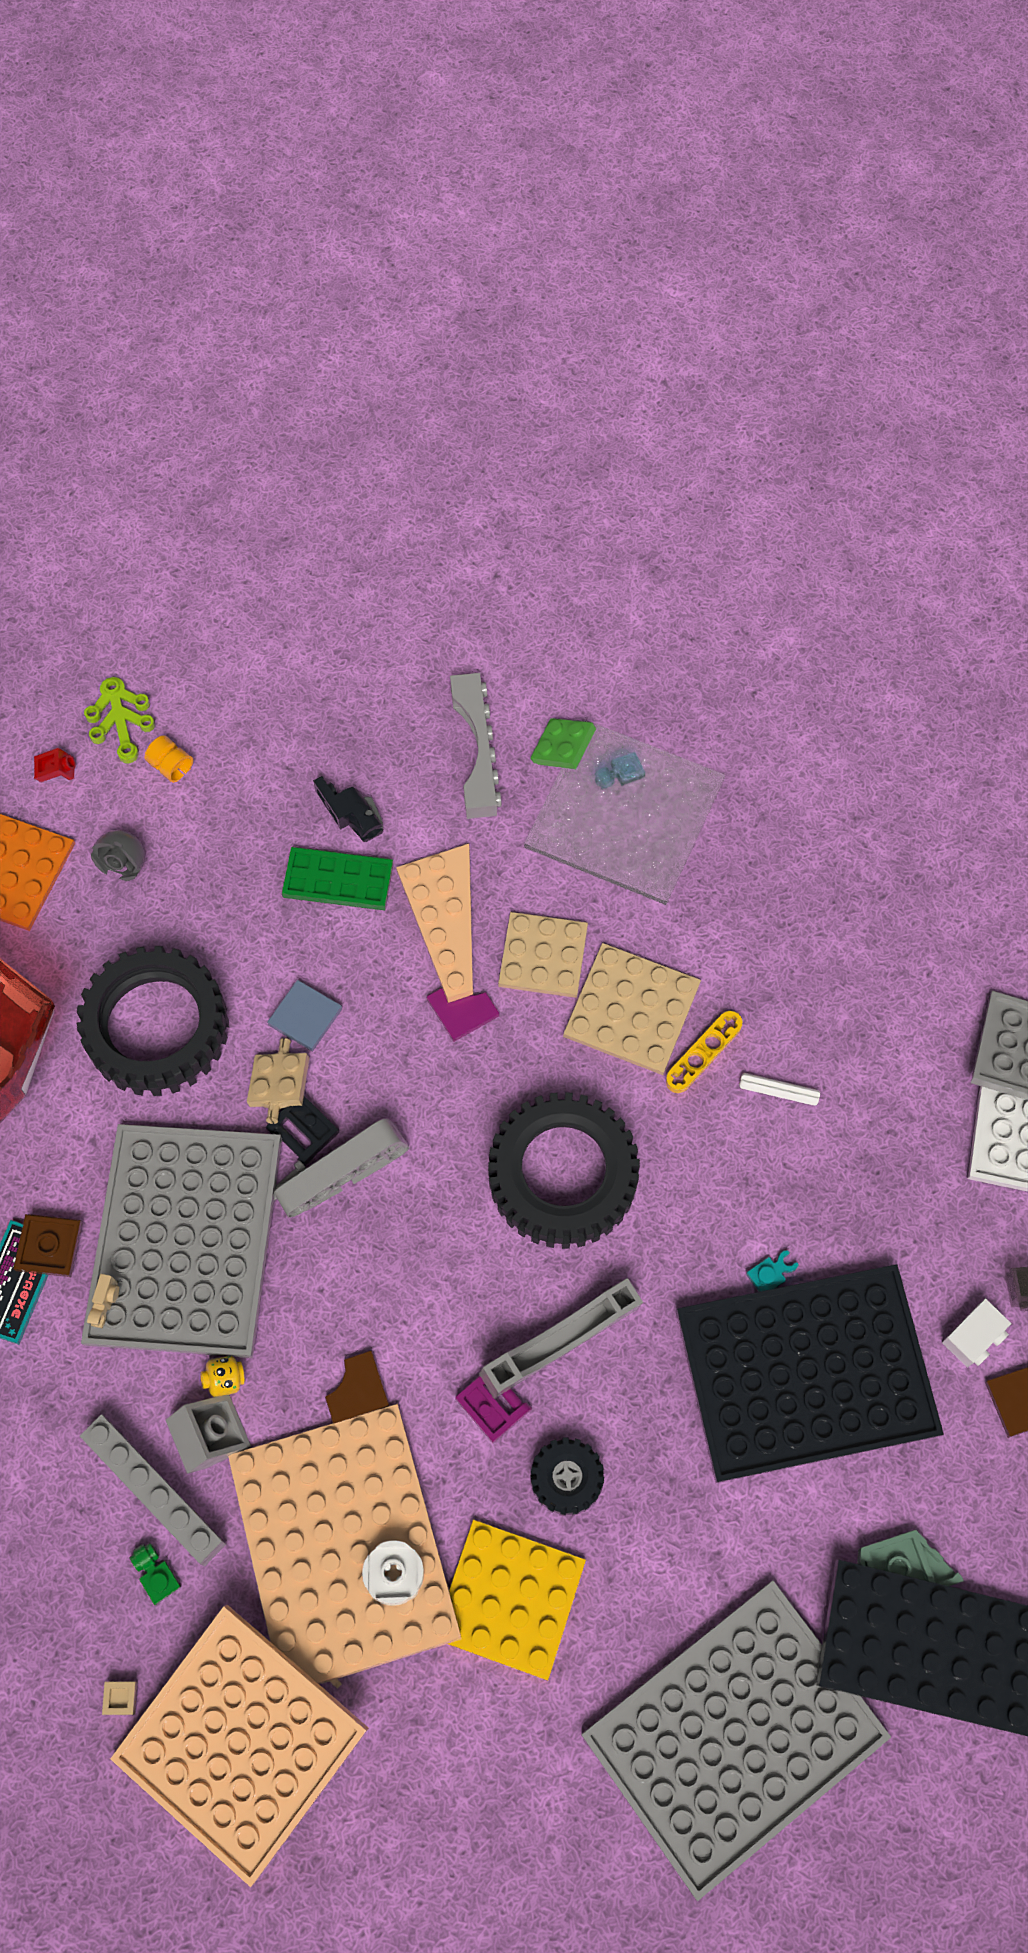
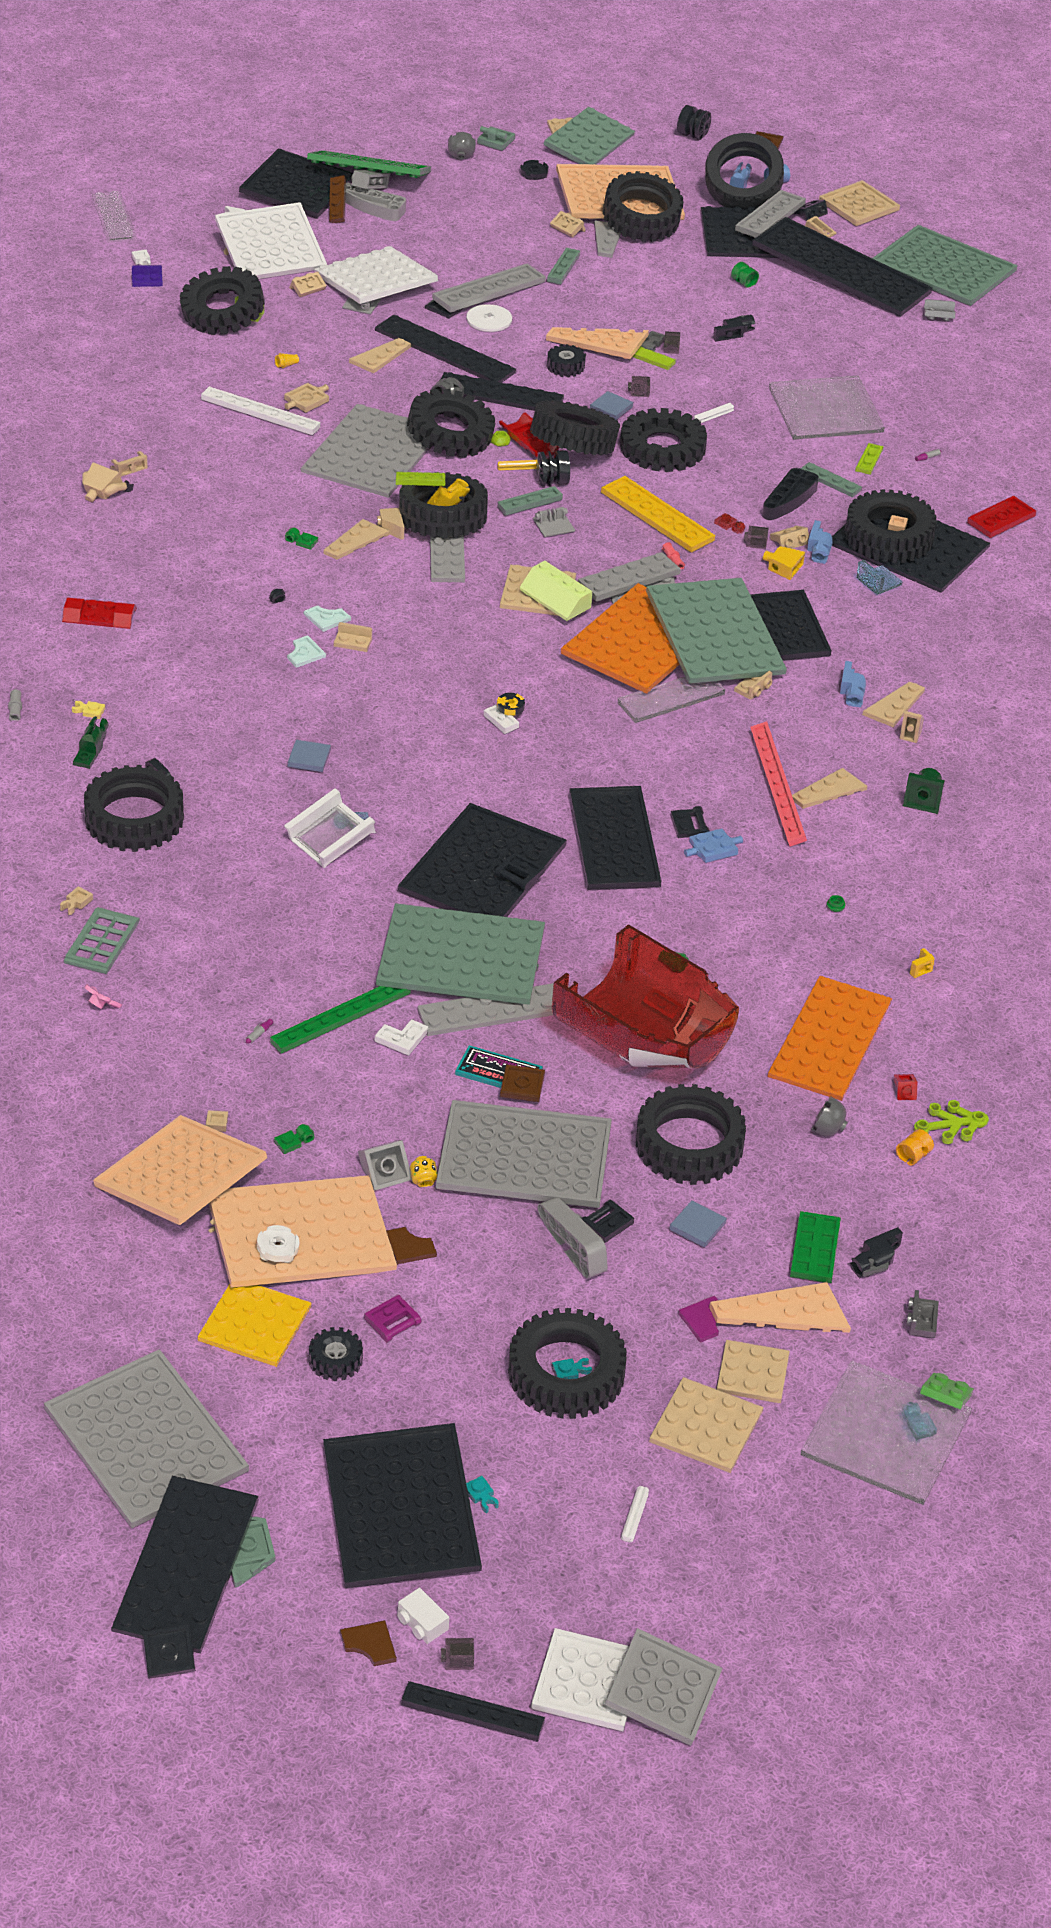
camera: 90 degrees right, 25 degrees down
(105, 1294) = (482, 1104): tan plate -> none
(153, 1490) = (321, 1150): light grey arch -> none
(278, 1080) = (644, 1205): tan plate -> none
(446, 764) = (923, 1316): none -> flat silver bracket
(479, 789) = (900, 1336): light grey arch -> none
(560, 1173) = (569, 1370): none -> teal plate
(560, 1339) = (451, 1375): light grey arch -> none
(706, 1054) = (669, 1466): yellow beam -> none

